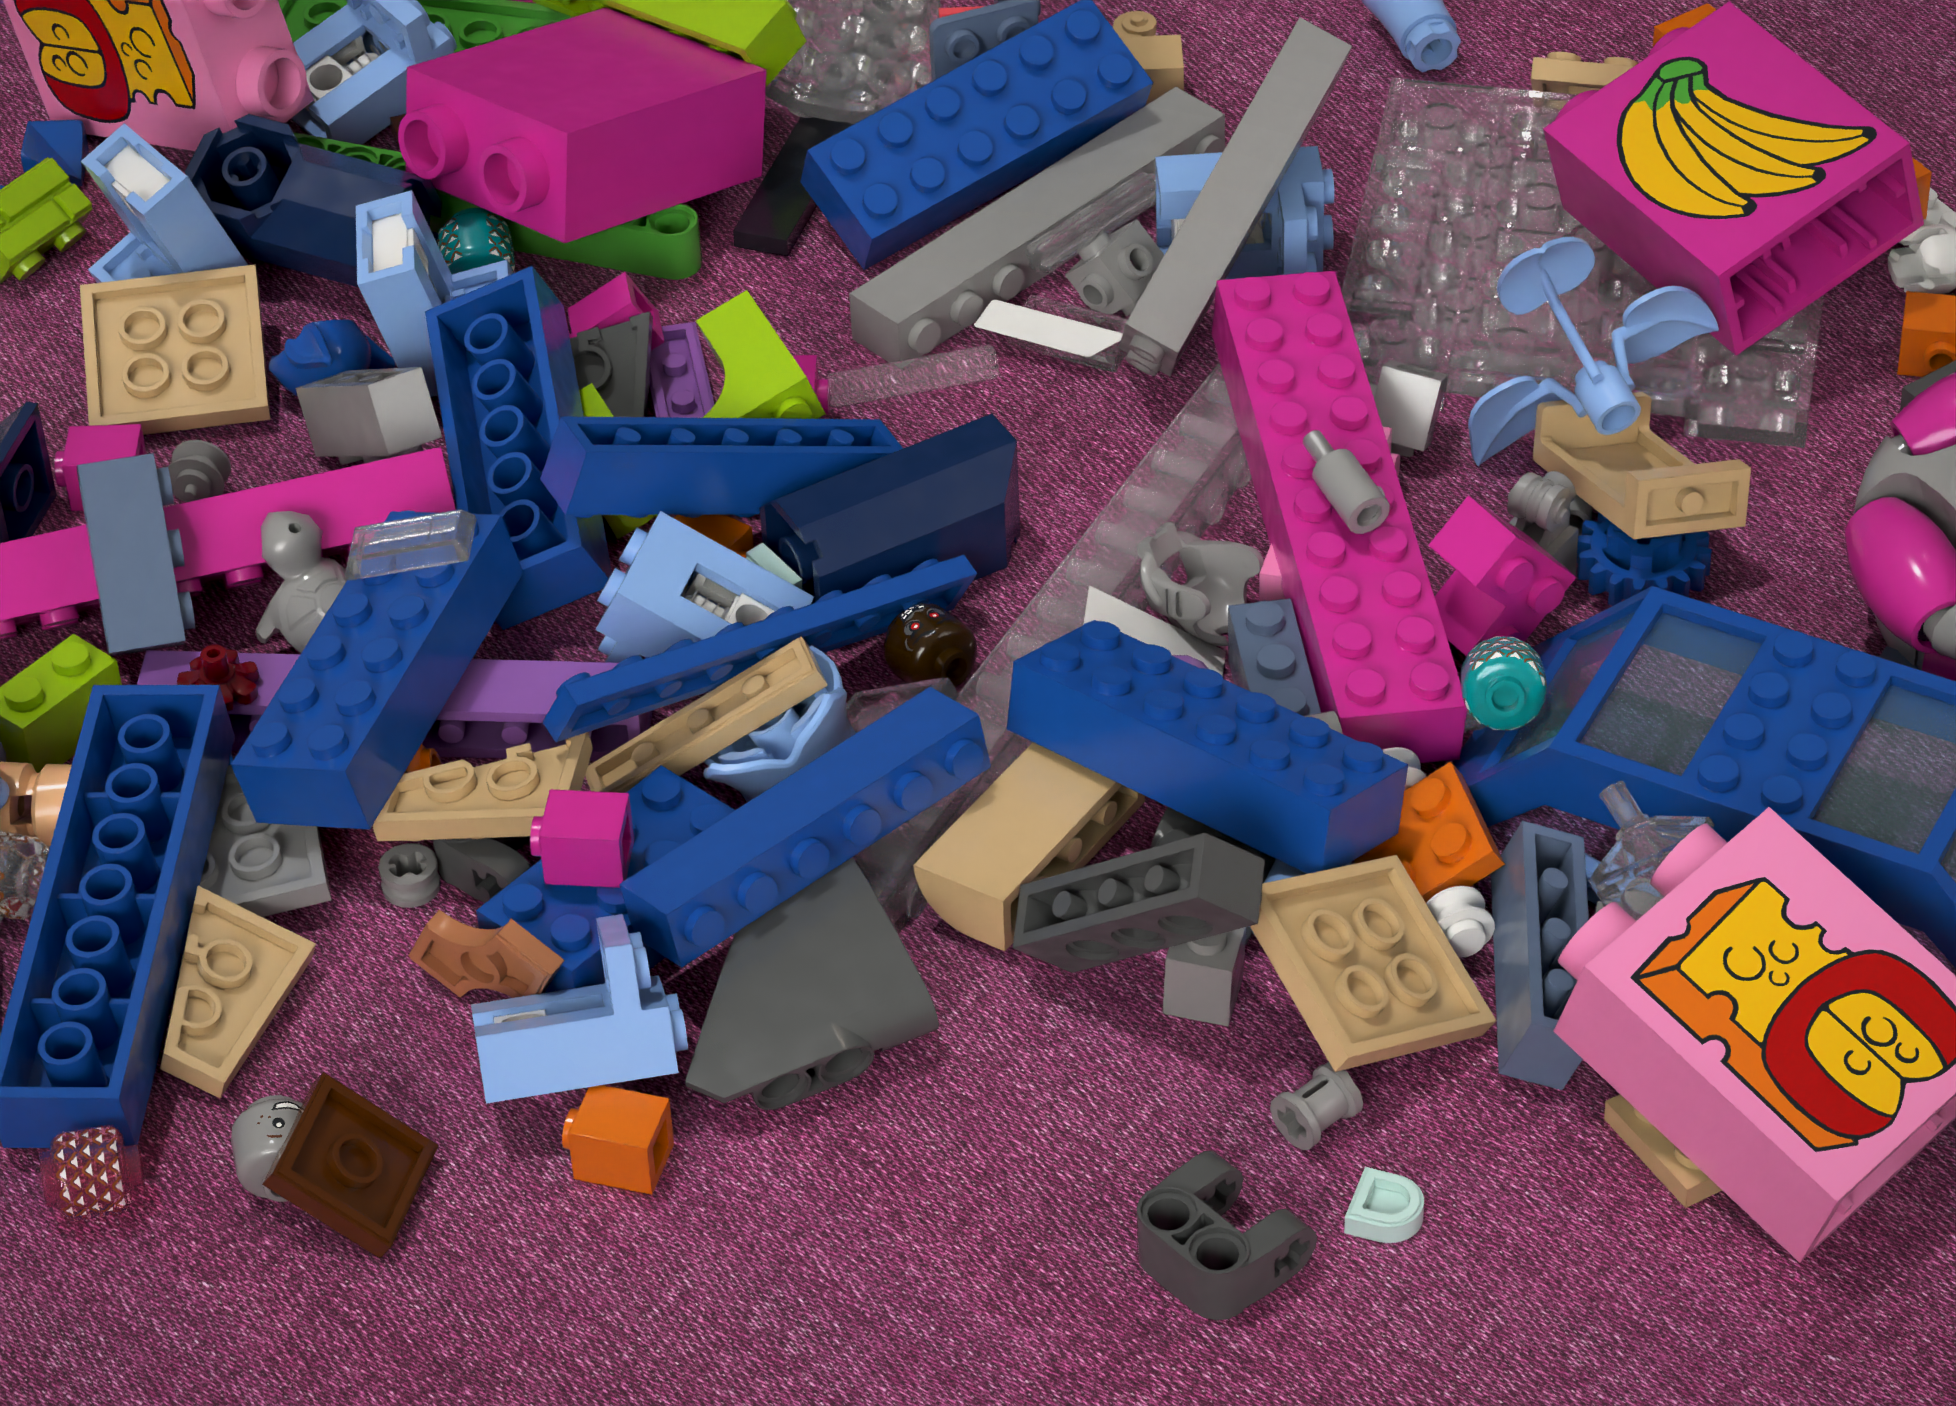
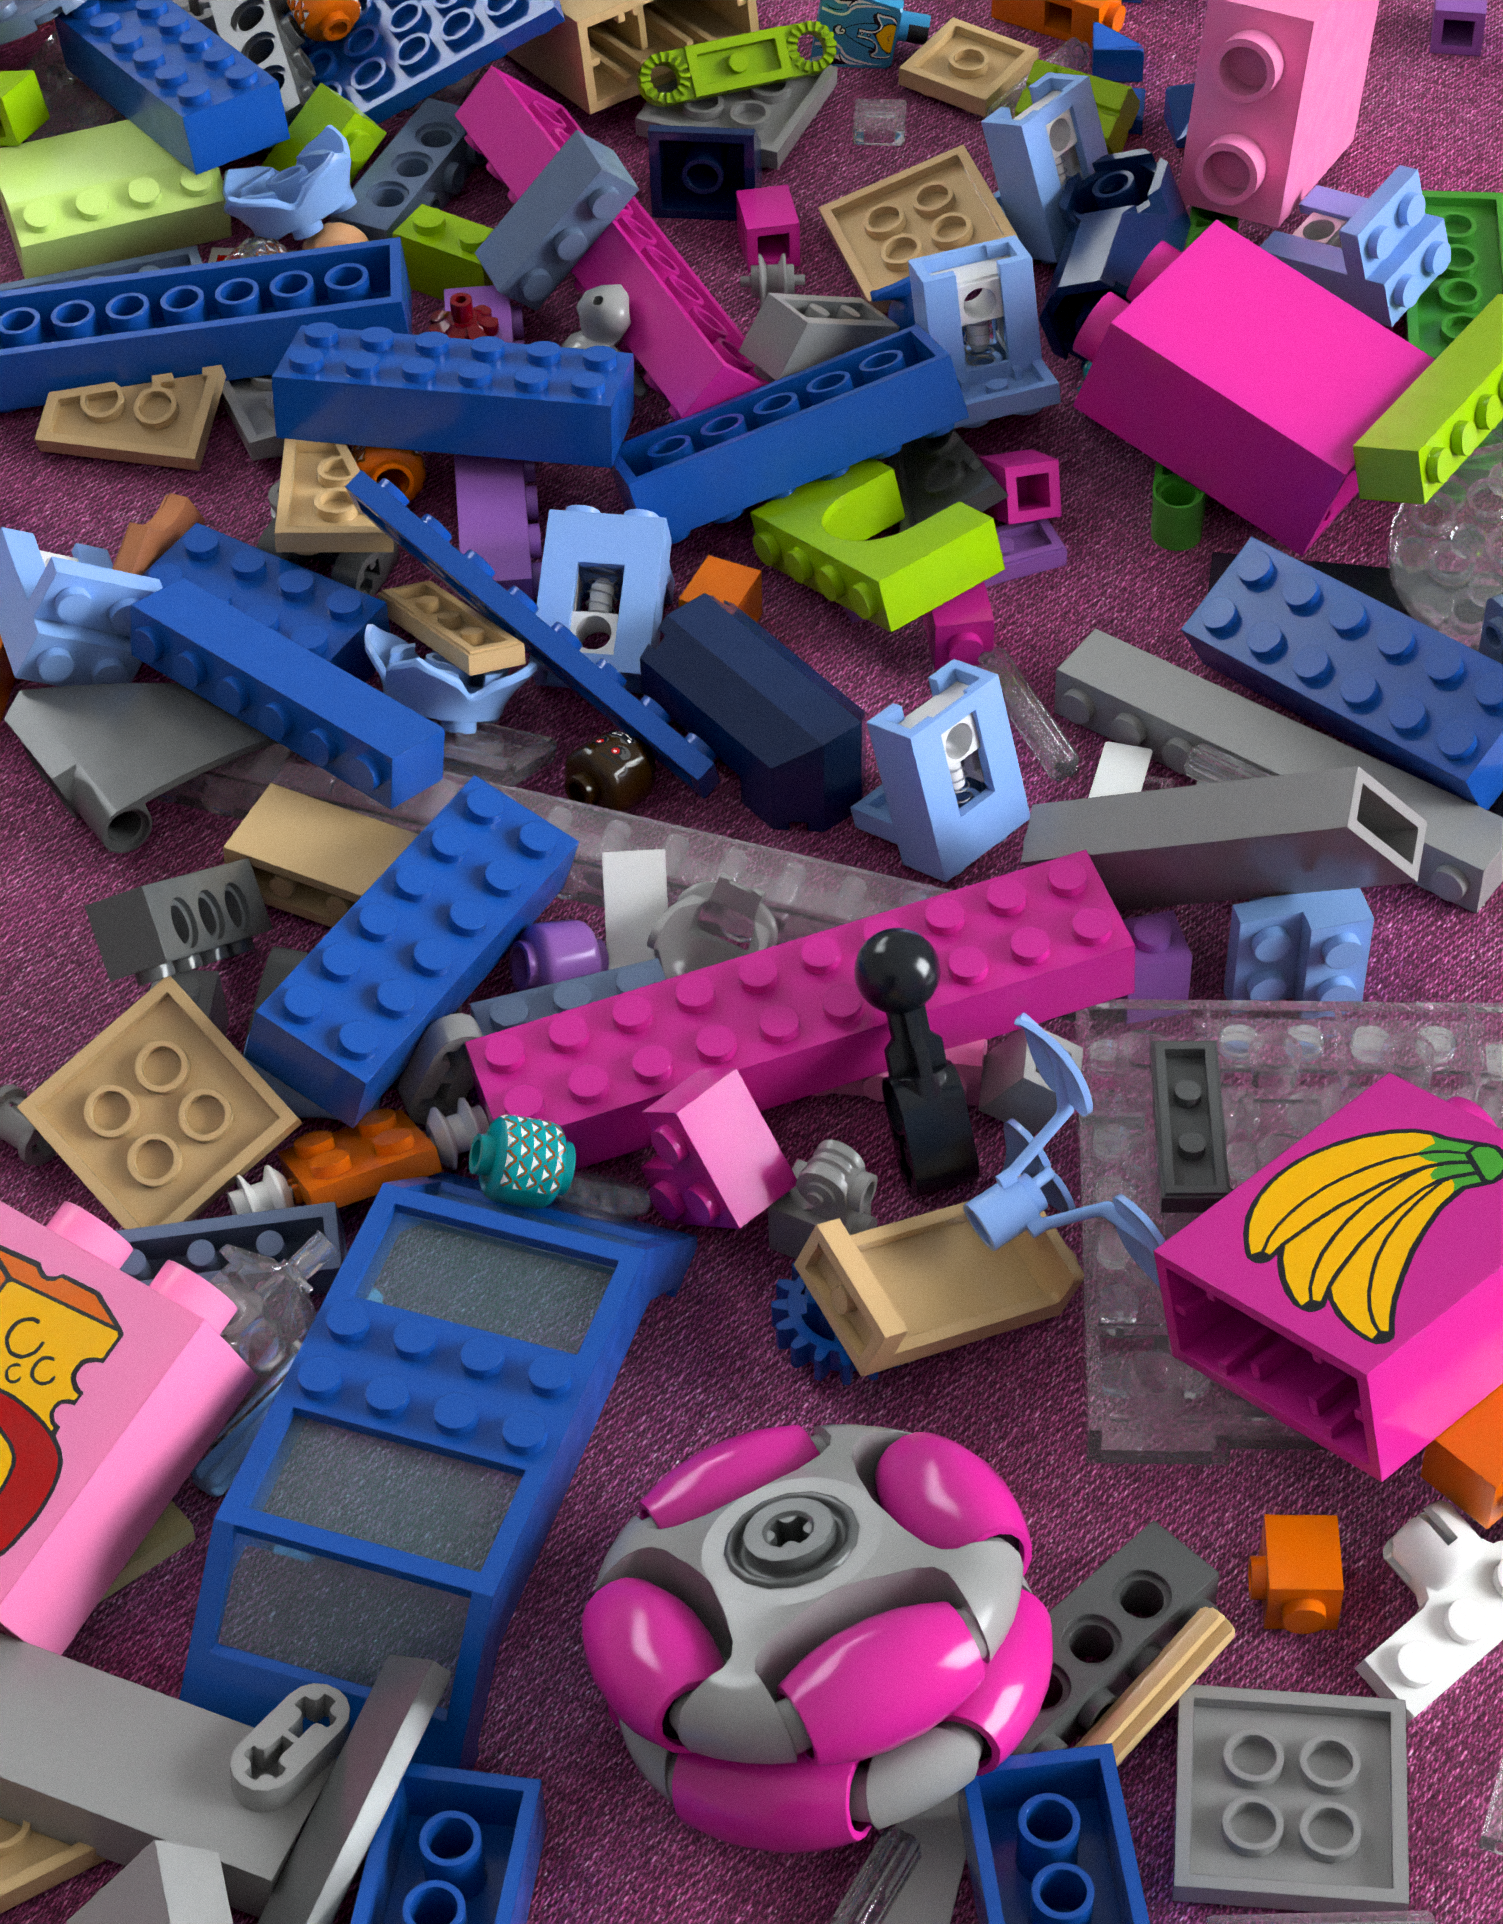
camera: 80 degrees right, 5 degrees up
(410, 544) = (551, 355): clear tile -> none
(584, 838) = (241, 550): dark pink brick -> none
(700, 462) = (753, 546): blue brick -> none
(1043, 393) = (945, 774): none -> light blue brick
(1346, 485) = (761, 980): light grey piece -> none
(1376, 388) = (923, 1091): none -> black beam
(1475, 308) = (1188, 1125): none -> dark grey tile

